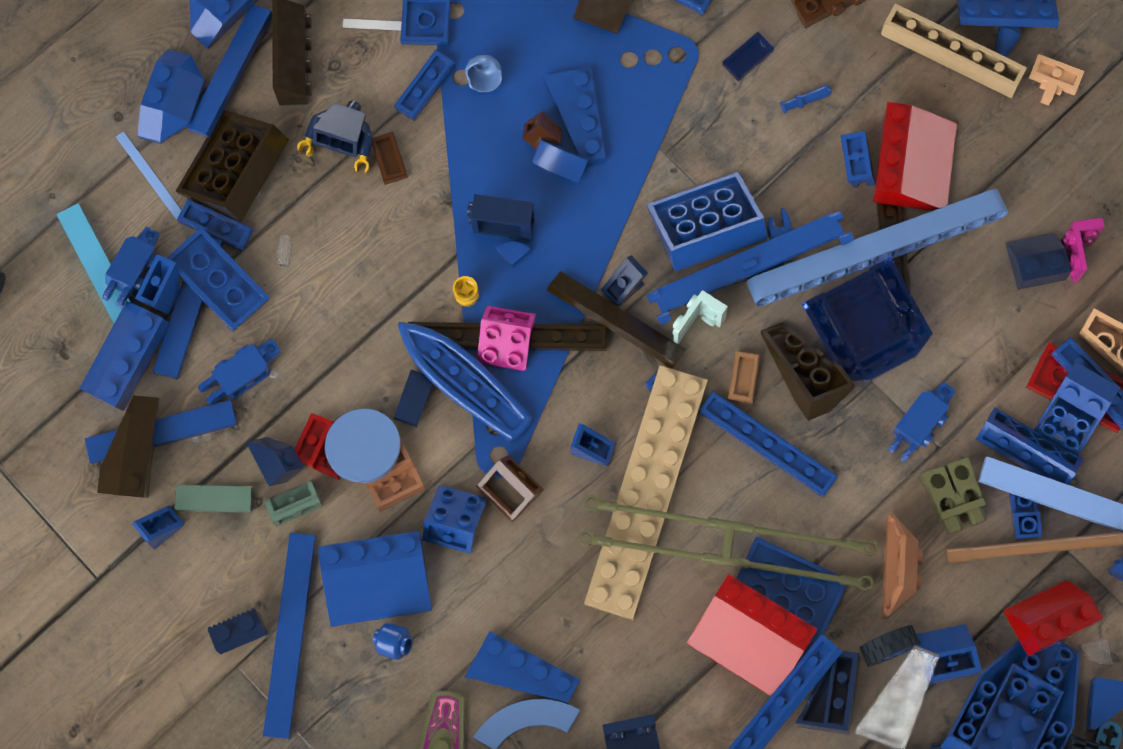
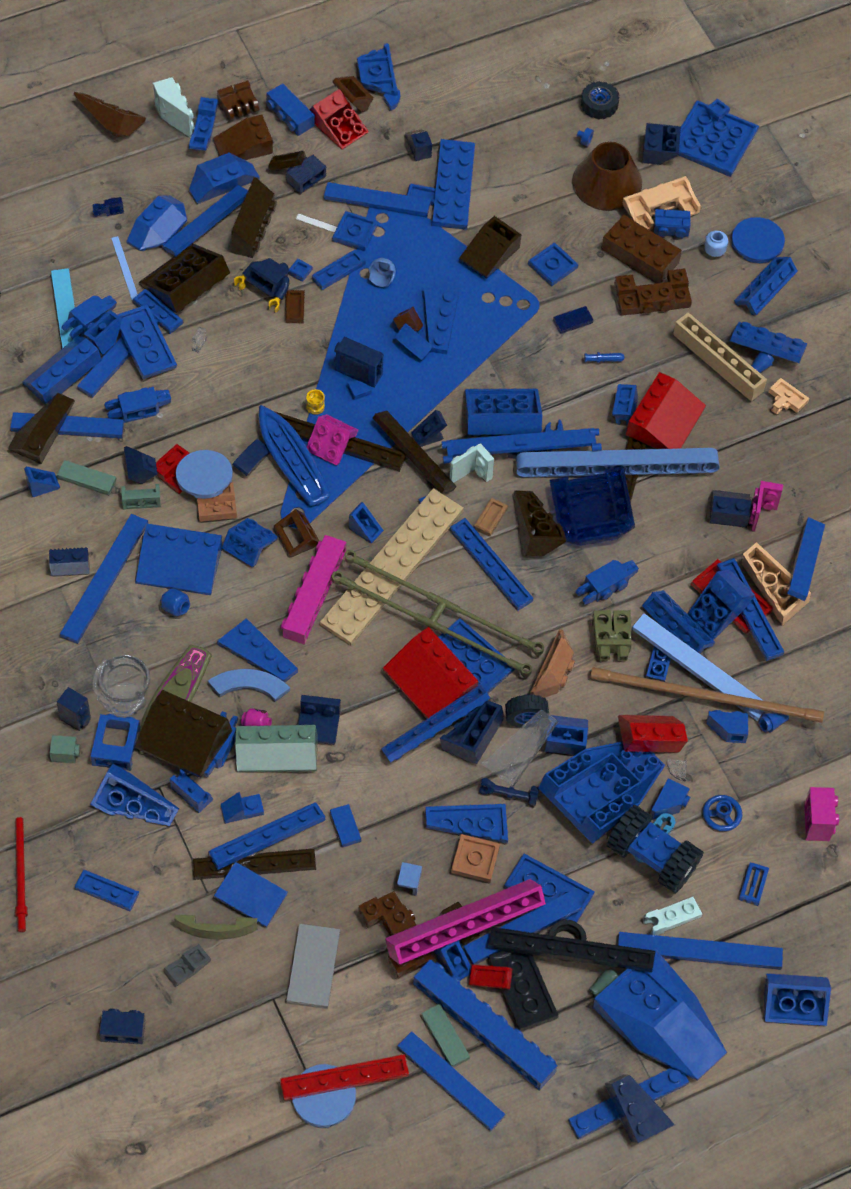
camera: 10 degrees right, 15 degrees down
(98, 94) = (111, 207): none -> clear blue plate
(375, 102) = (300, 270): none -> blue tile
(561, 561) = (314, 589): none -> dark pink brick

